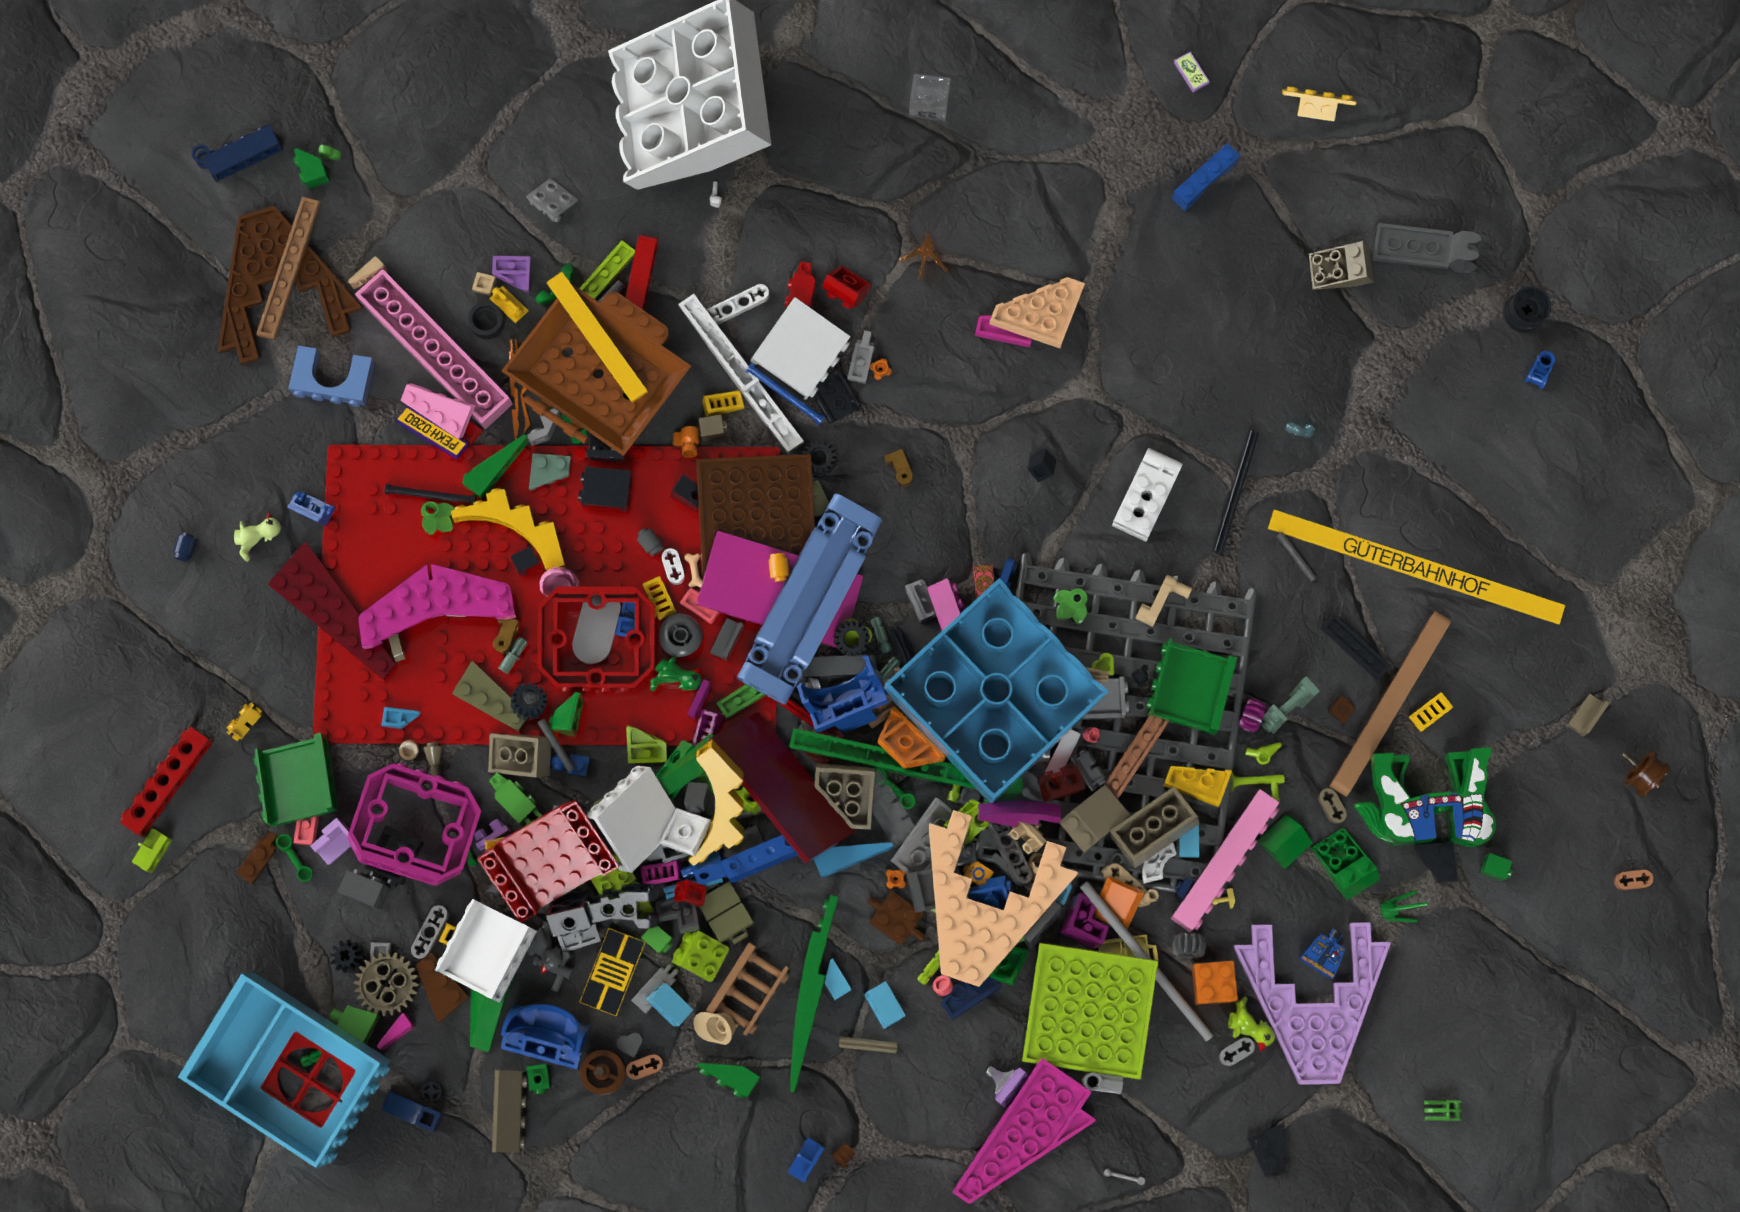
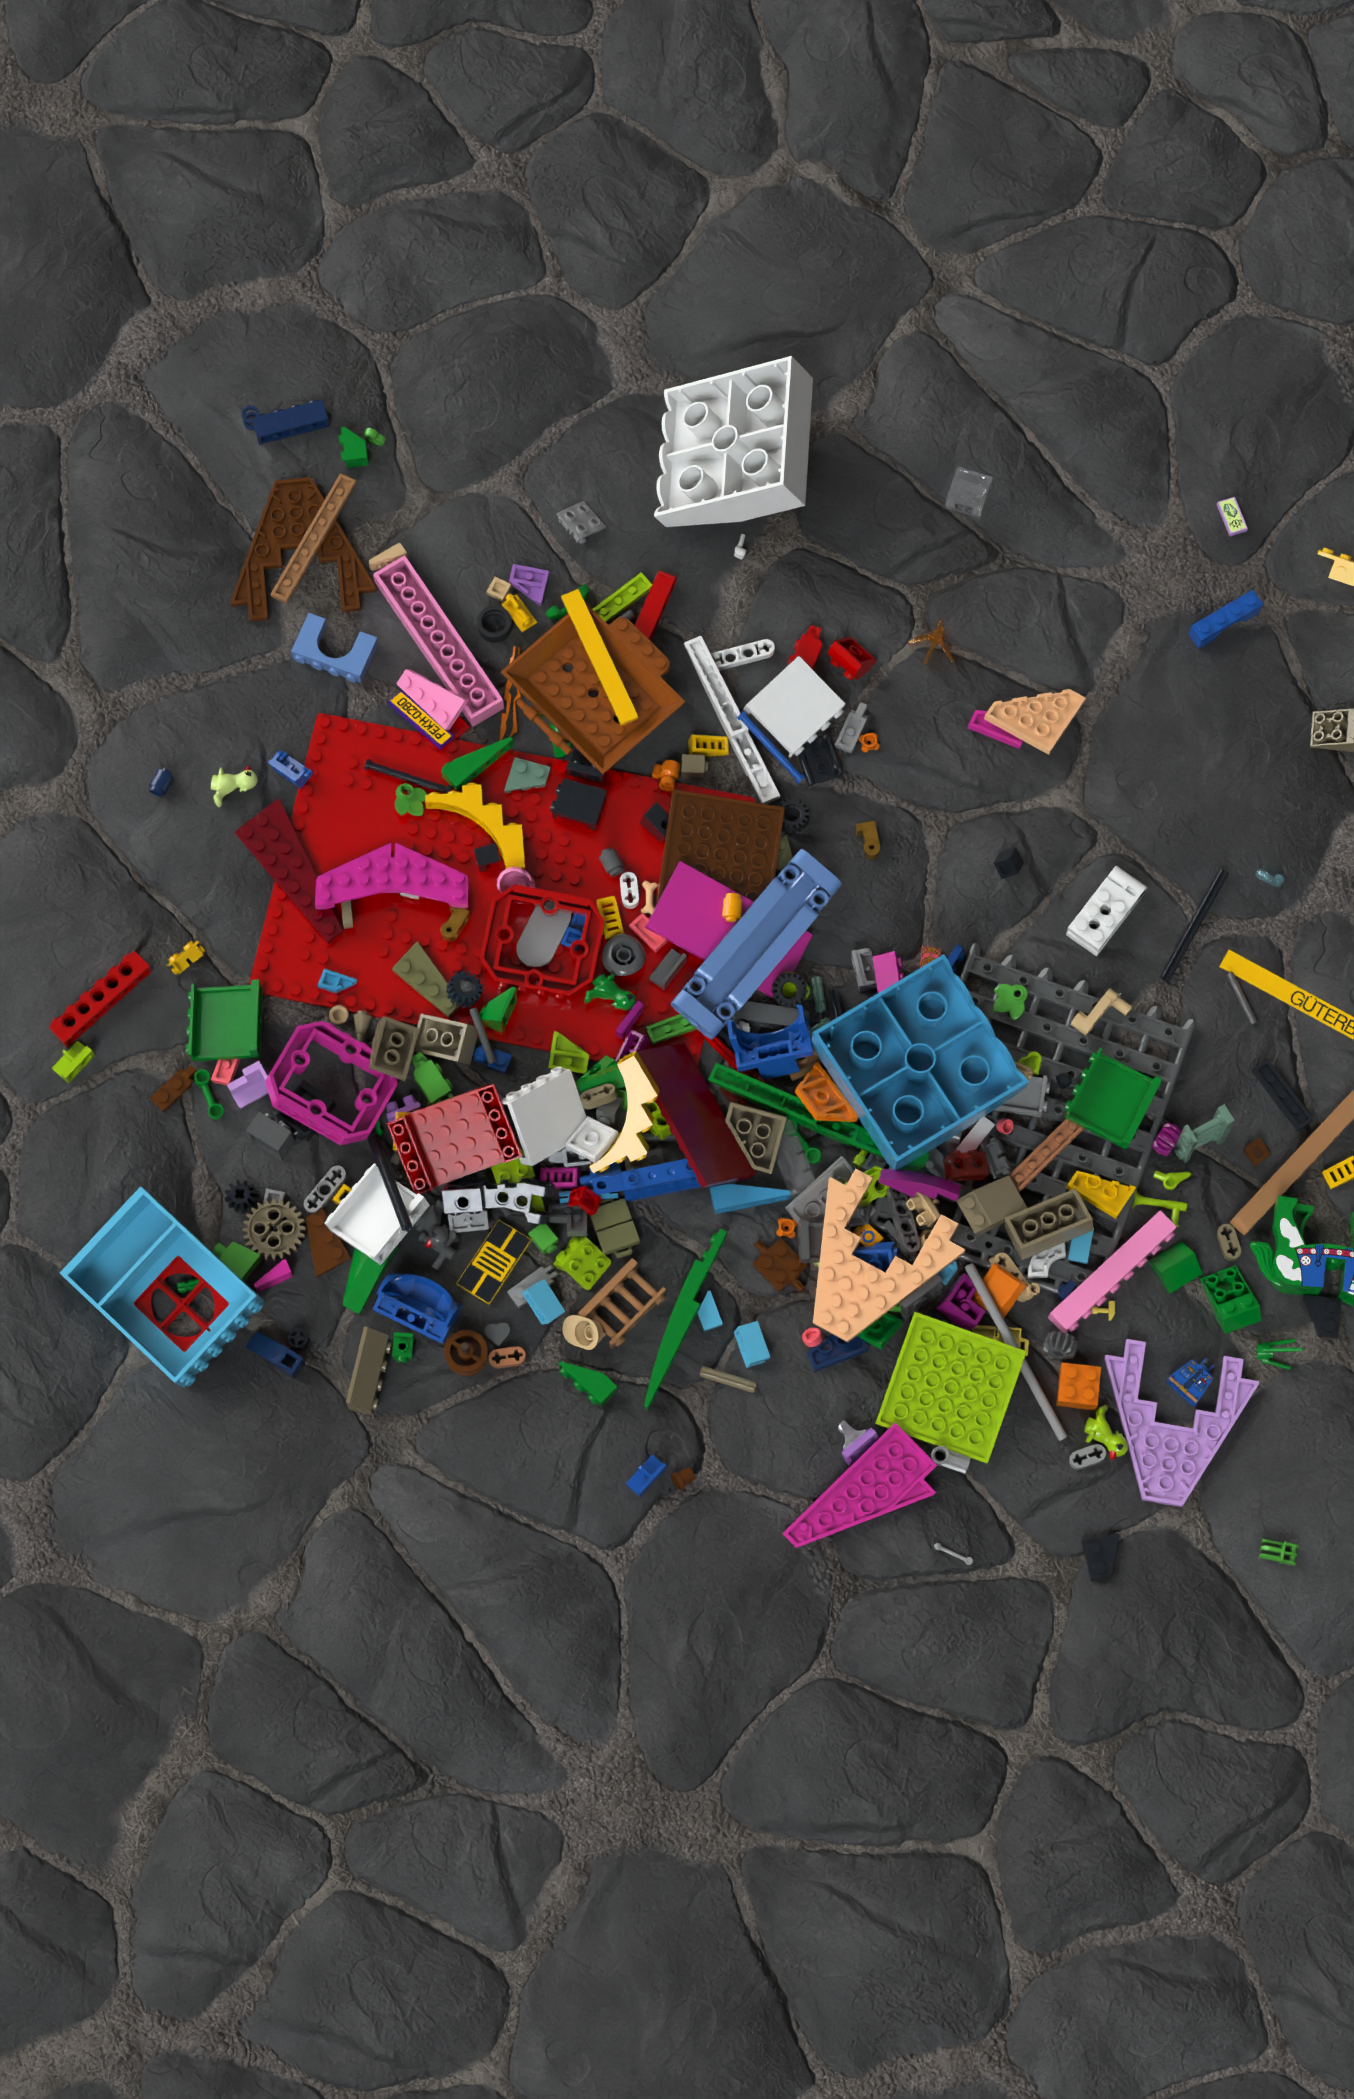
camera: 10 degrees right, 5 degrees down
(469, 776) = (393, 1048): none -> dark tan slope
(492, 916) = (389, 1182): none -> black axle
(513, 655) = (457, 944): sand green axle -> none
(542, 435) = (526, 742): light grey slope -> none
(683, 787) = (598, 1096): none -> dark tan beam
(930, 969) = (802, 1320): lime axle -> none

